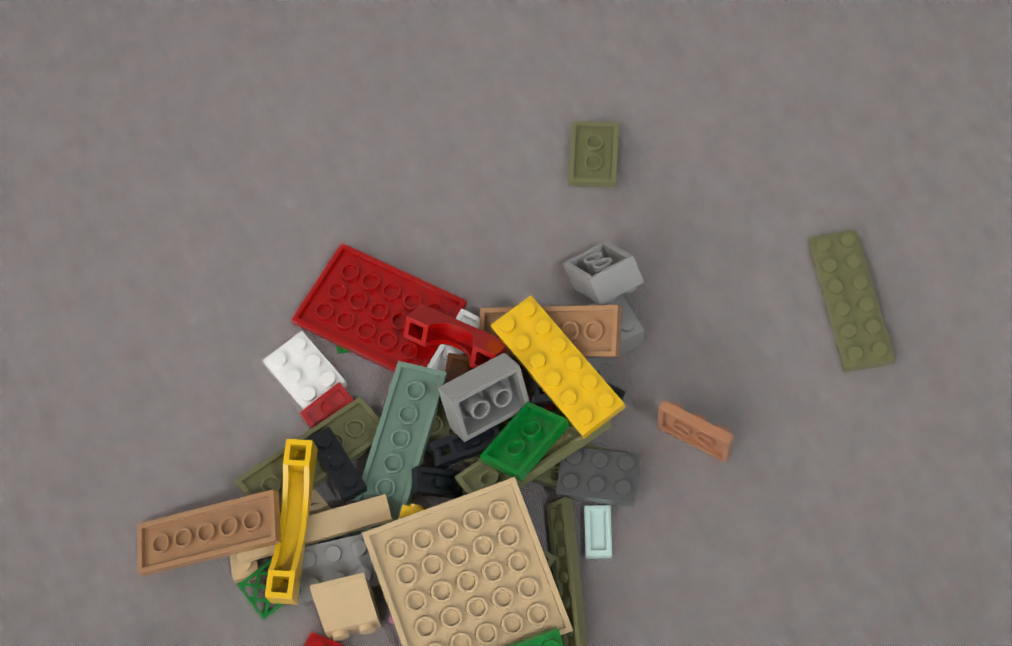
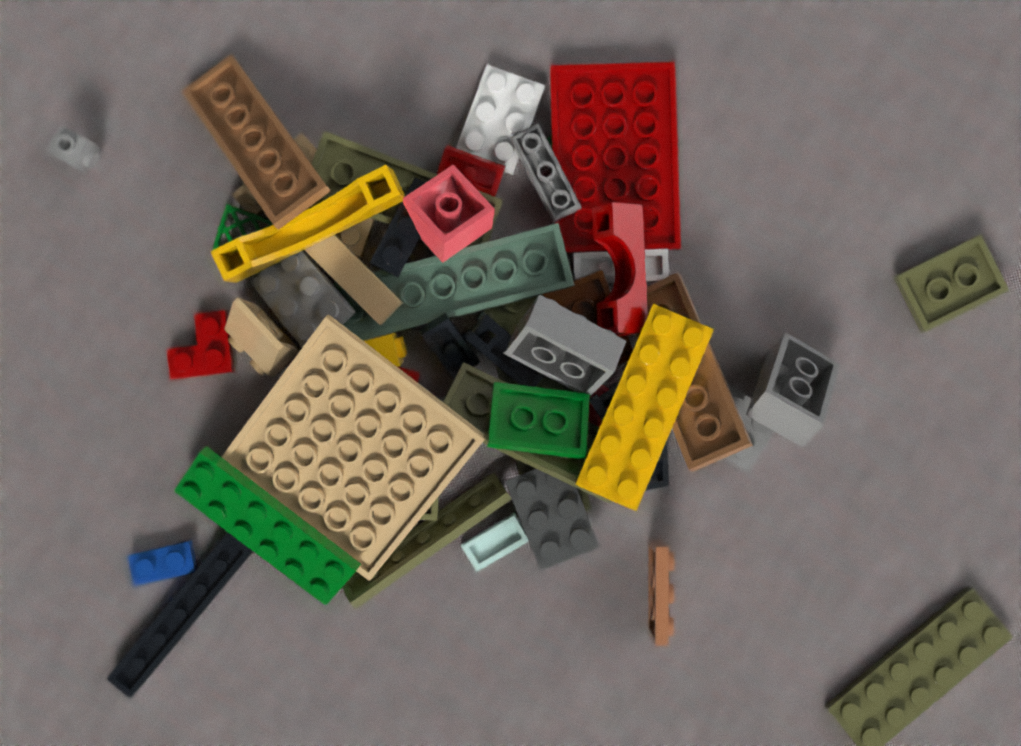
camera: 50 degrees right, 25 degrees up
(346, 426) = (449, 213): none -> coral slope
(375, 357) = (553, 190): none -> light grey tile

